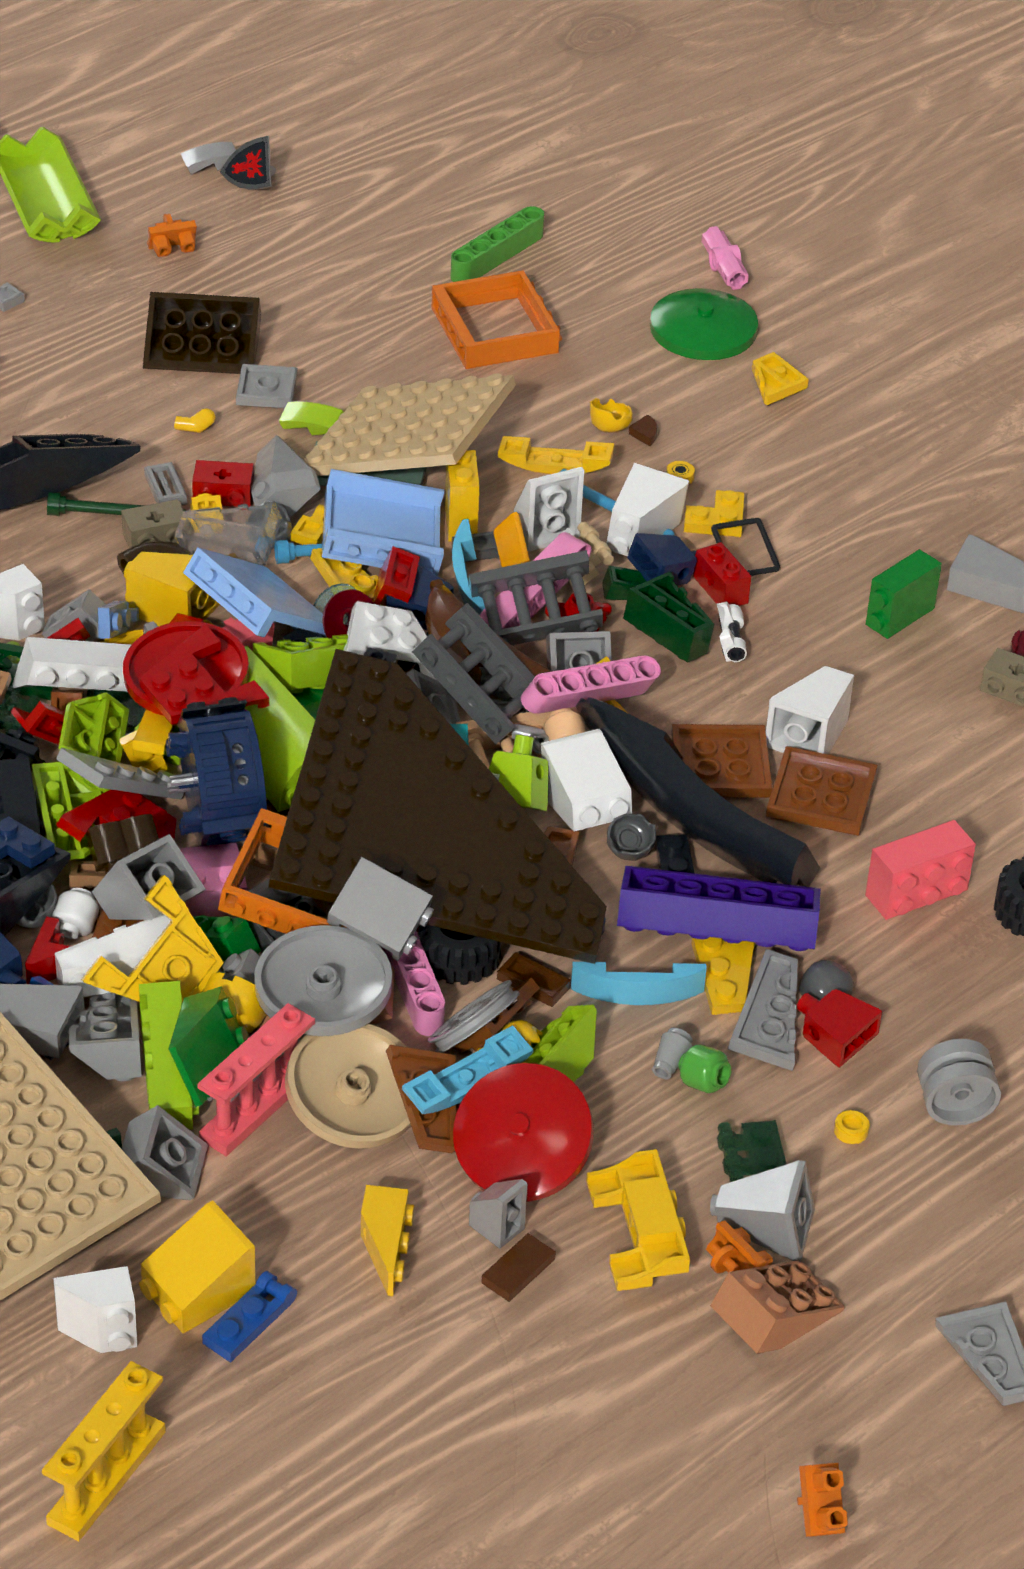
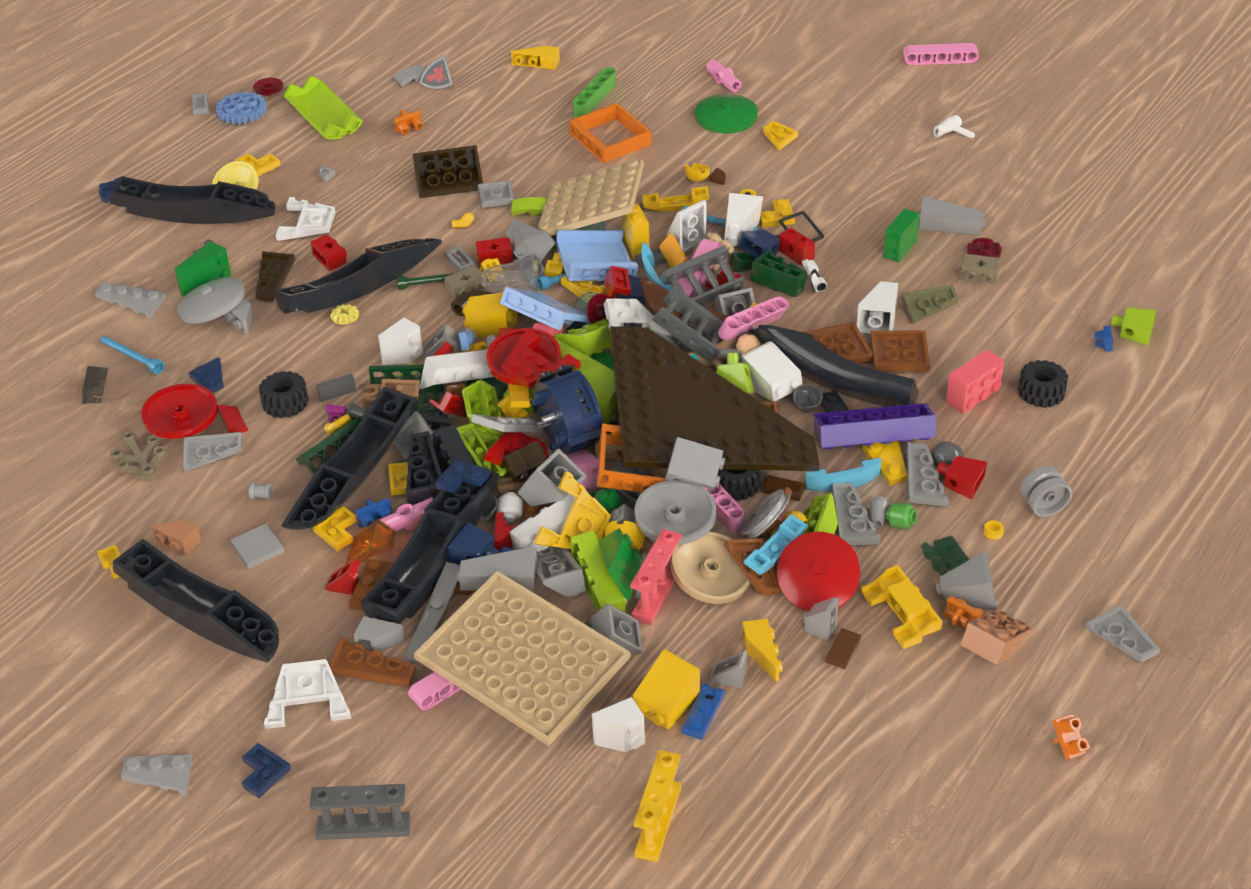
camera: 10 degrees left, 0 degrees up
(319, 1261) = (730, 670): none -> light grey slope
(428, 166) = (537, 57): none -> yellow slope
(622, 1055) = (852, 516): none -> light grey wing
(904, 717) = (928, 301): none -> olive wing

